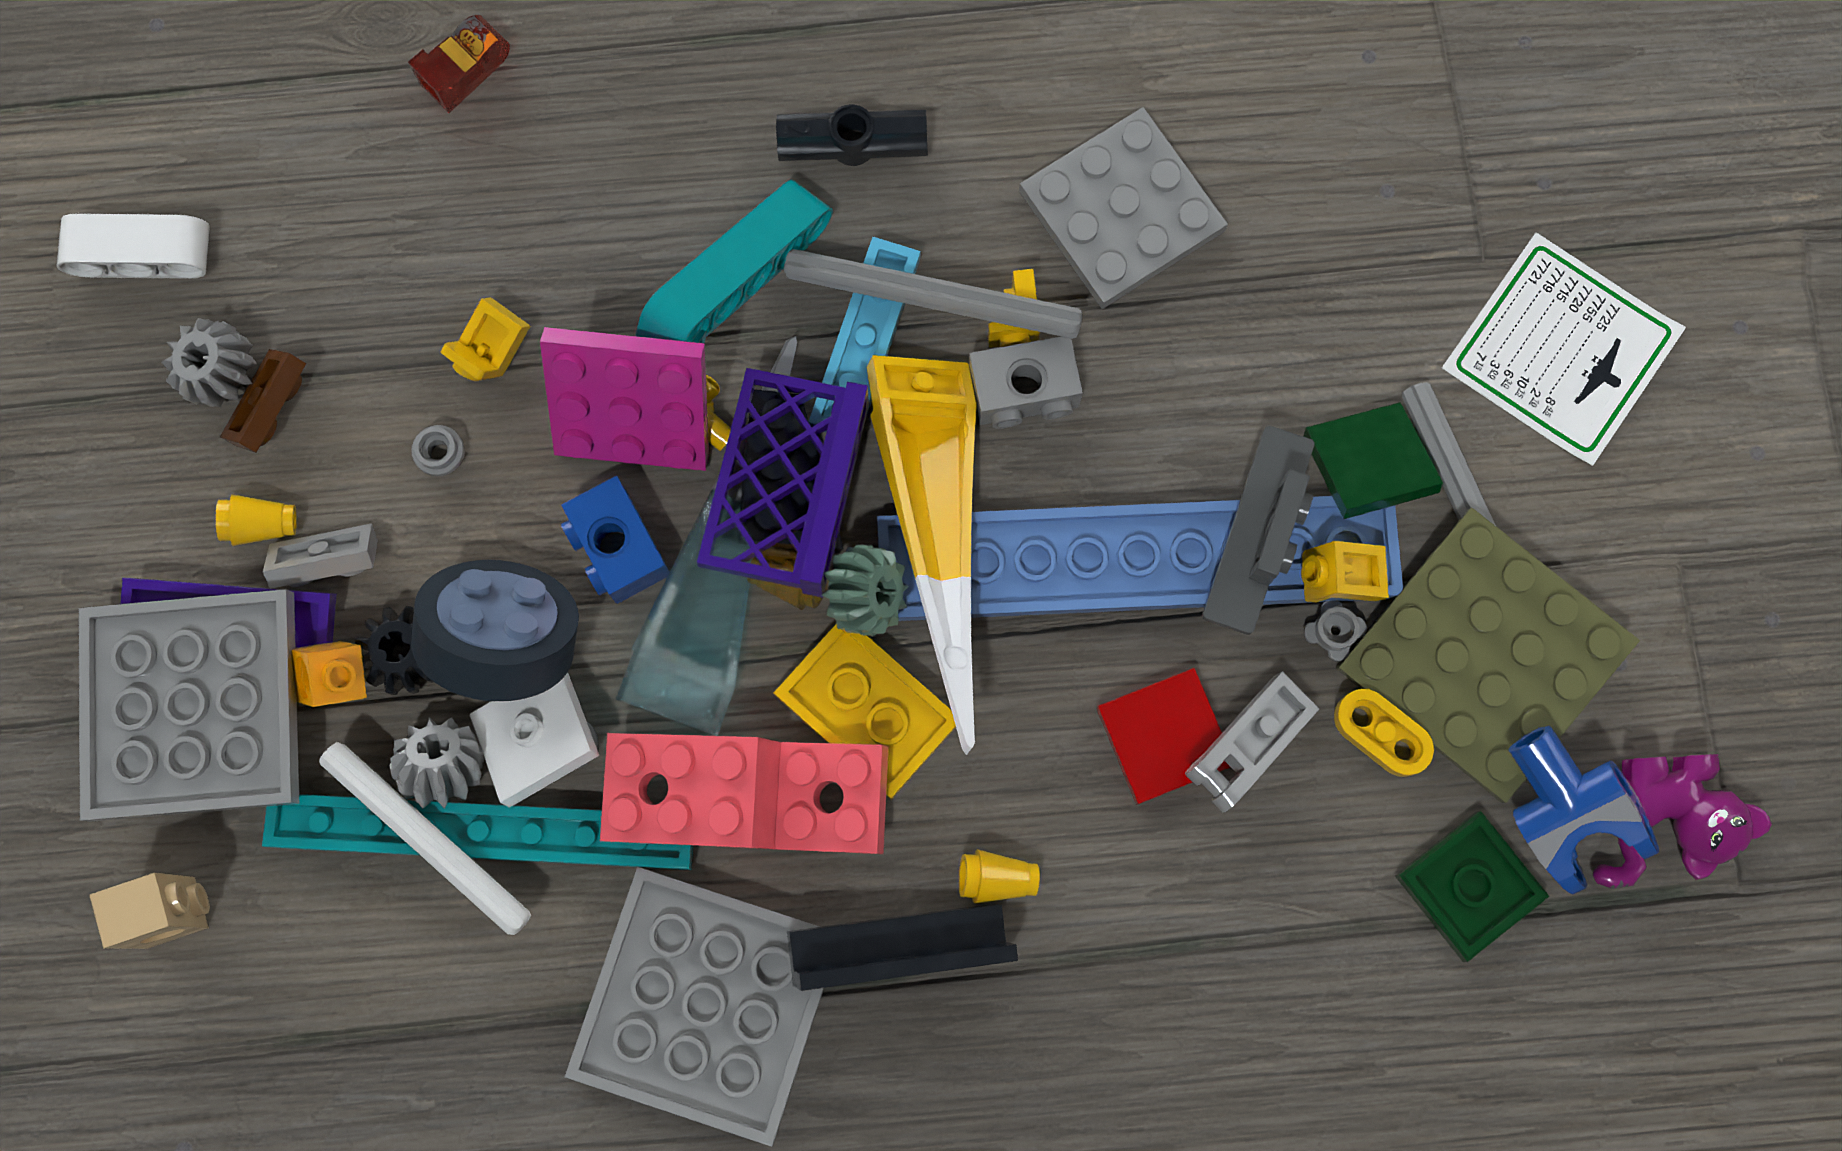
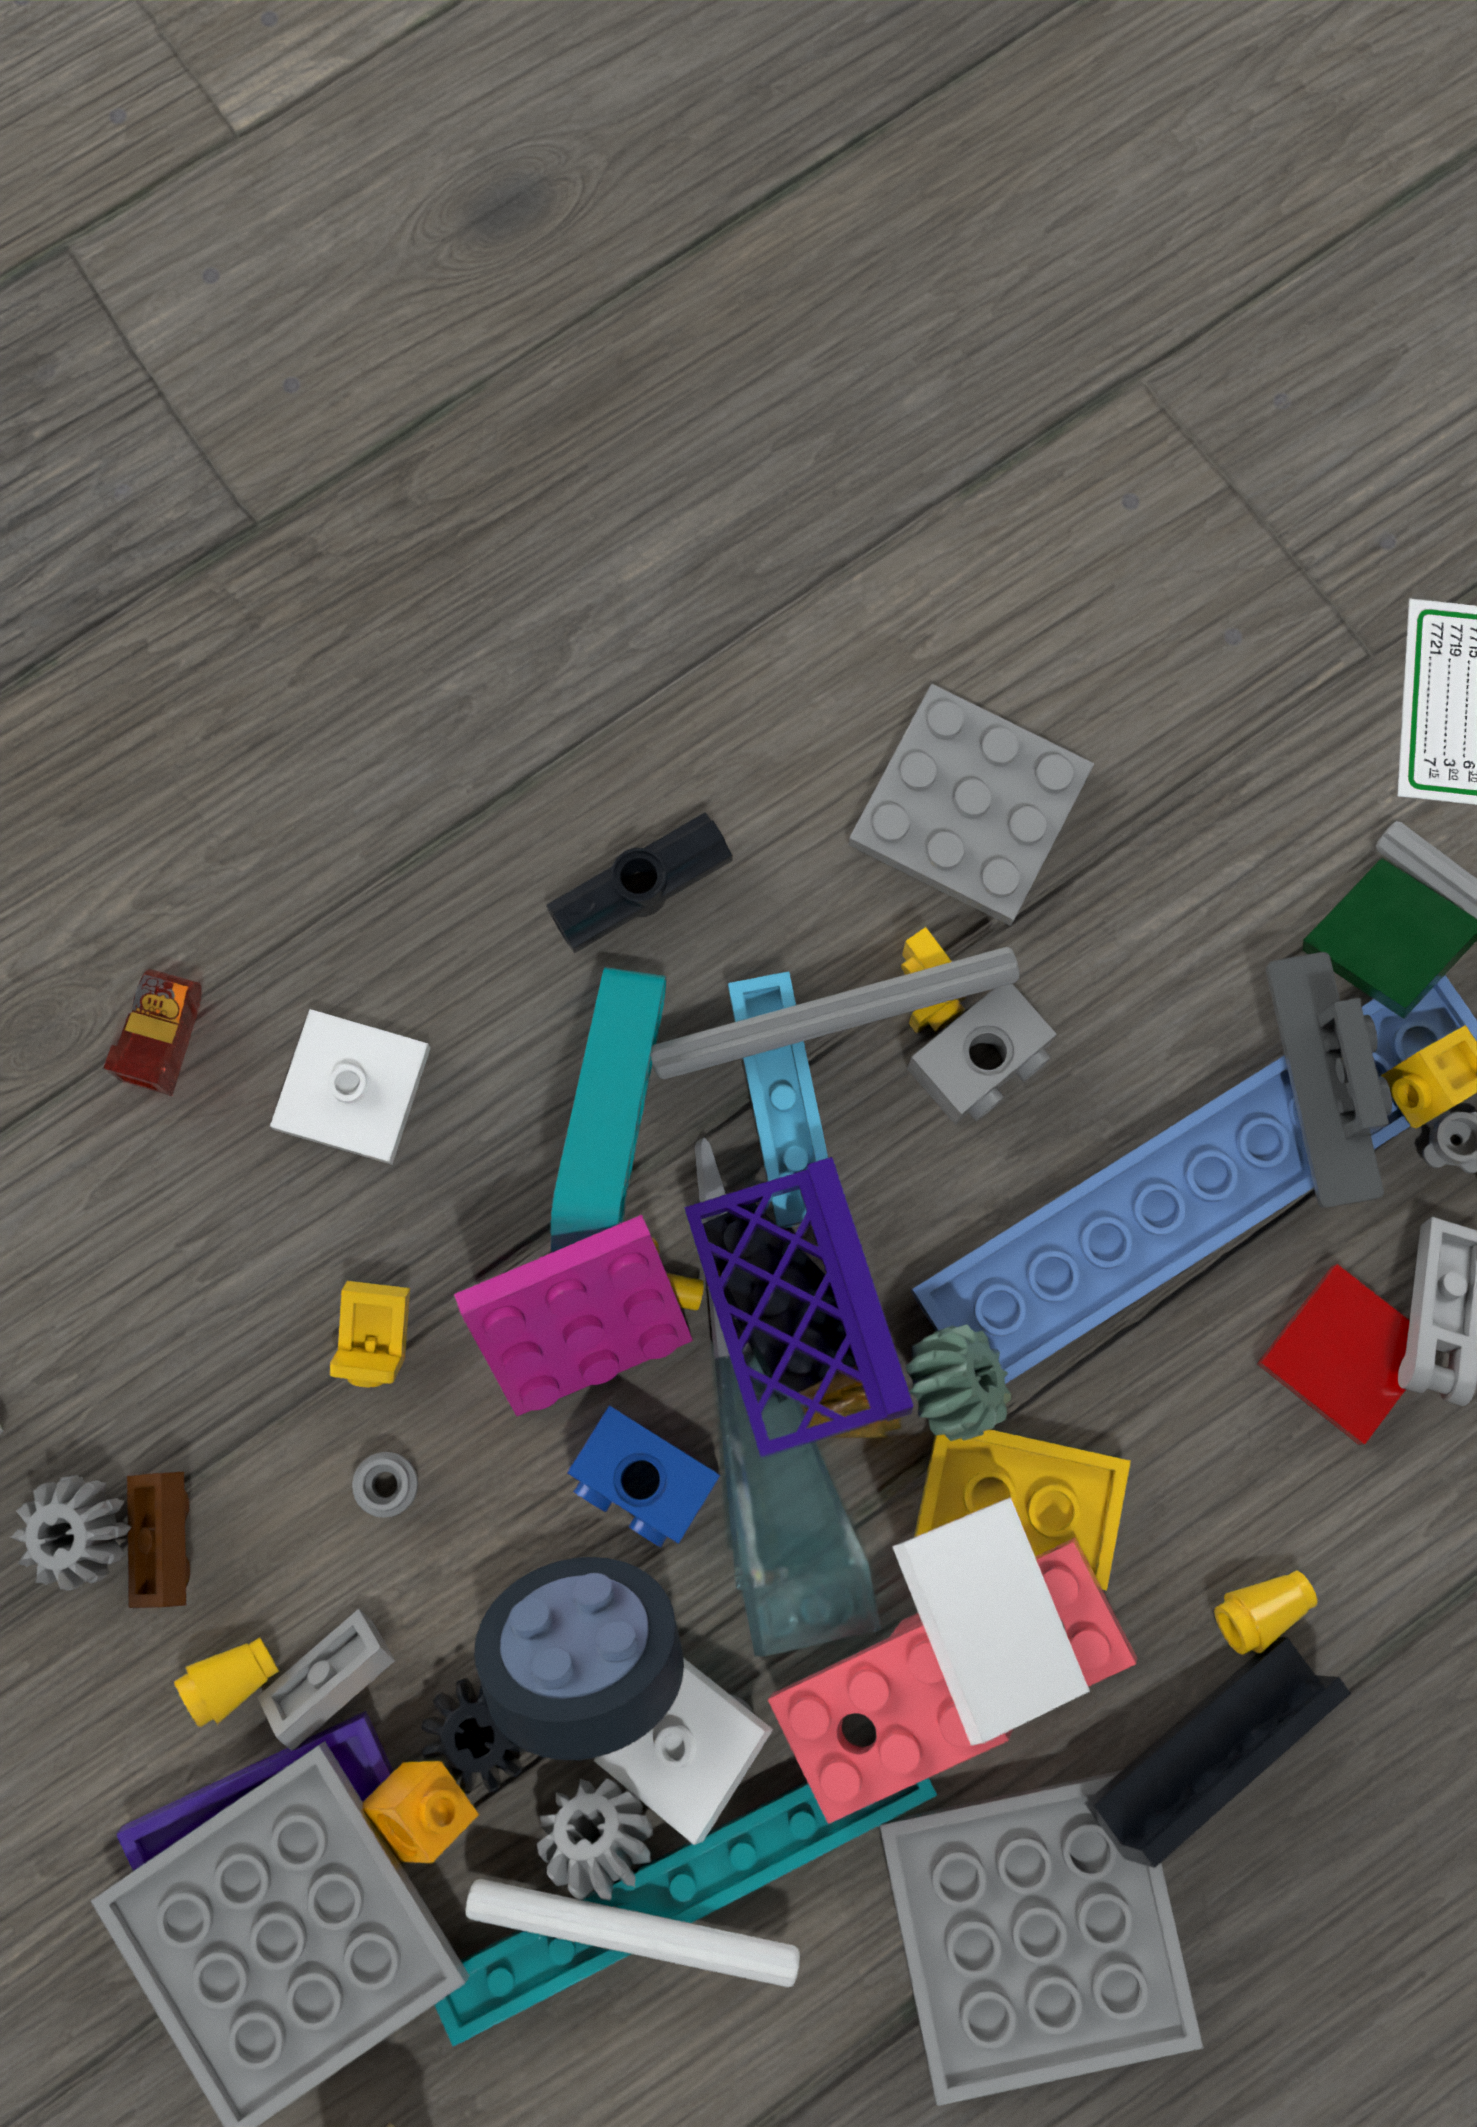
camera: 30 degrees left, 0 degrees up
(572, 170) = (350, 1086): none -> white plate
(788, 758) = (991, 1621): none -> white tile
(927, 447) = (925, 1185): yellow plate -> none

